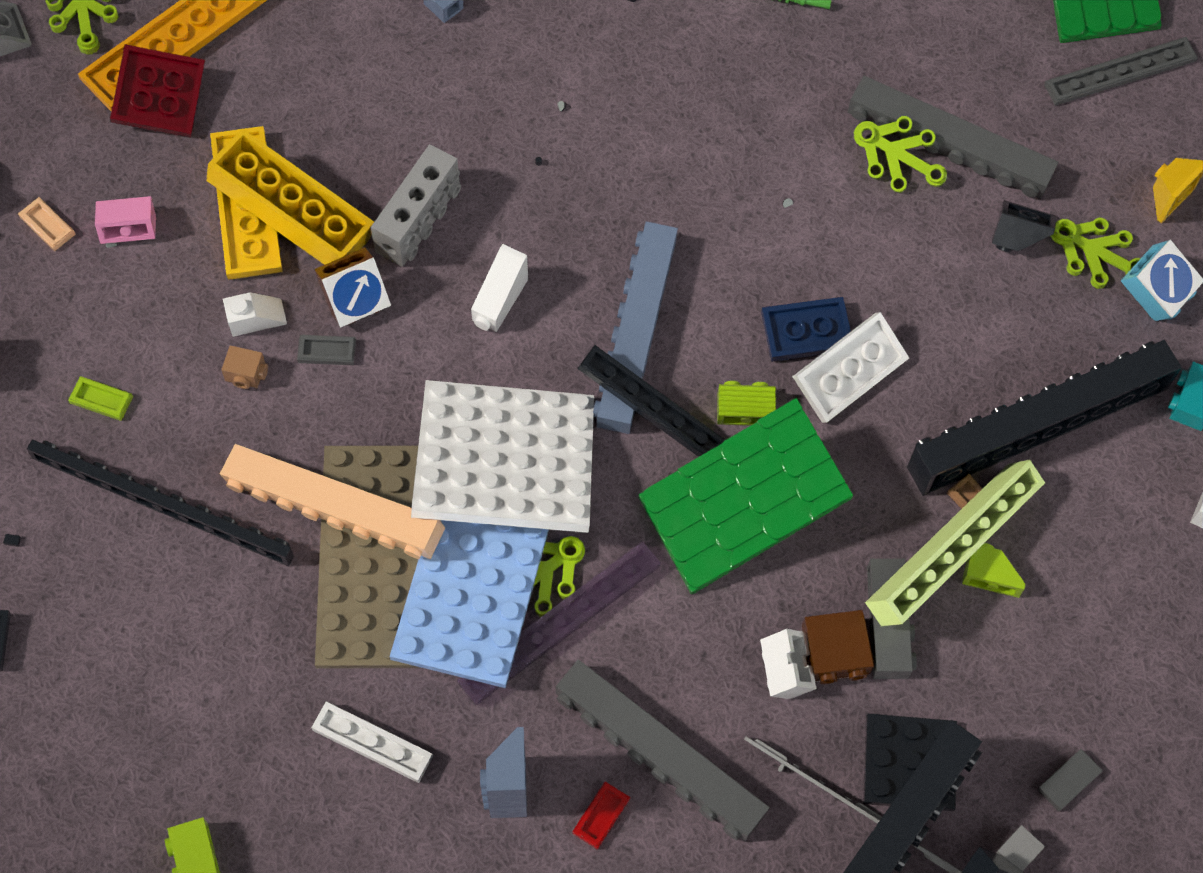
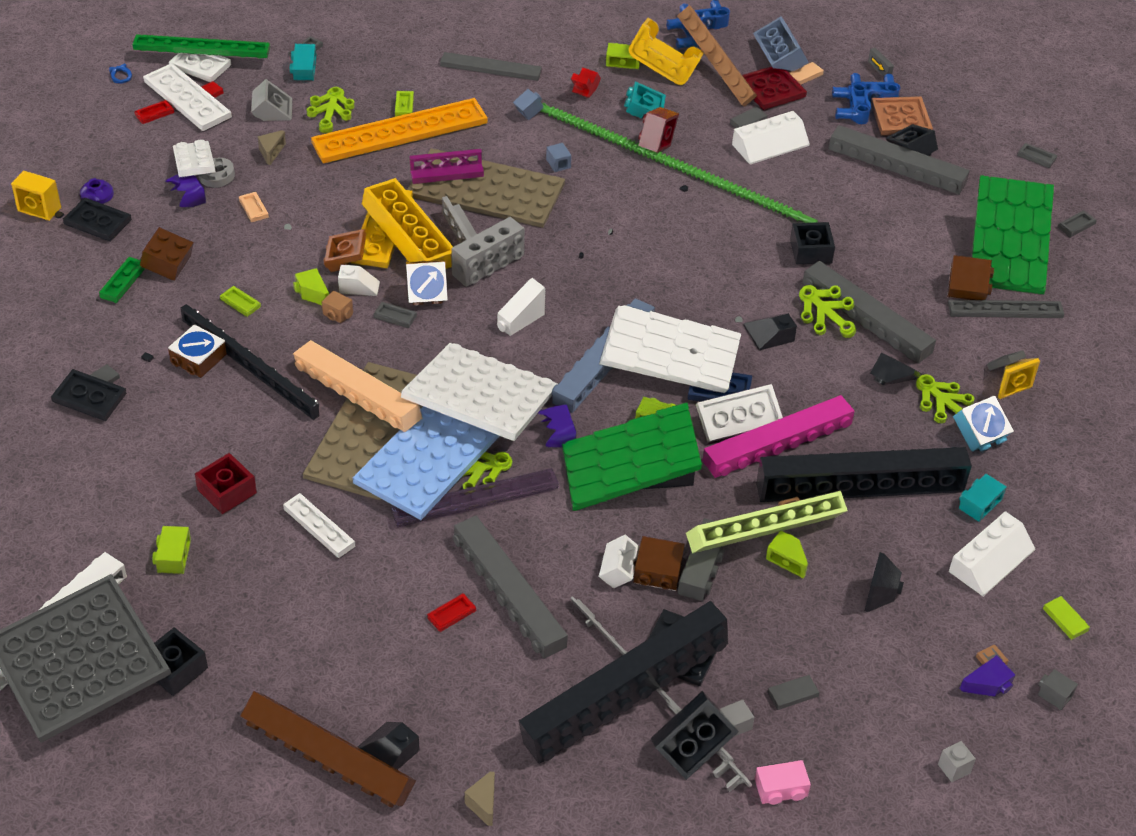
camera: 20 degrees right, 20 degrees down
(25, 106) = (271, 145): none -> dark tan slope
(80, 511) = (197, 351): none -> piece
(125, 220) = (302, 214): bright pink brick -> none
(157, 91) = (355, 156): dark red plate -> none
(193, 344) = (310, 286): none -> lime slope
(214, 266) = (344, 249): none -> dark orange plate
(220, 724) = (225, 483): none -> dark red brick
(298, 75) = (446, 170): none -> magenta fence
(356, 166) = (457, 220): none -> light grey fence
(361, 83) = (500, 193): none -> dark tan plate
(505, 778) = (394, 554): sand blue slope -> none
(628, 467) = (561, 423): none -> dark purple piece
(649, 402) = (588, 387): black tile -> none
(724, 292) = (671, 348): none -> white piece
(837, 208) = (772, 331): none -> black slope
(842, 45) = (812, 243): none -> black brick
(911, 385) = (778, 436): none -> dark pink brick
(1065, 41) = (970, 278): none -> reddish brown piece
(1124, 580) = (884, 584): none -> black slope
(1156, 165) = (1006, 360): none -> dark grey tile

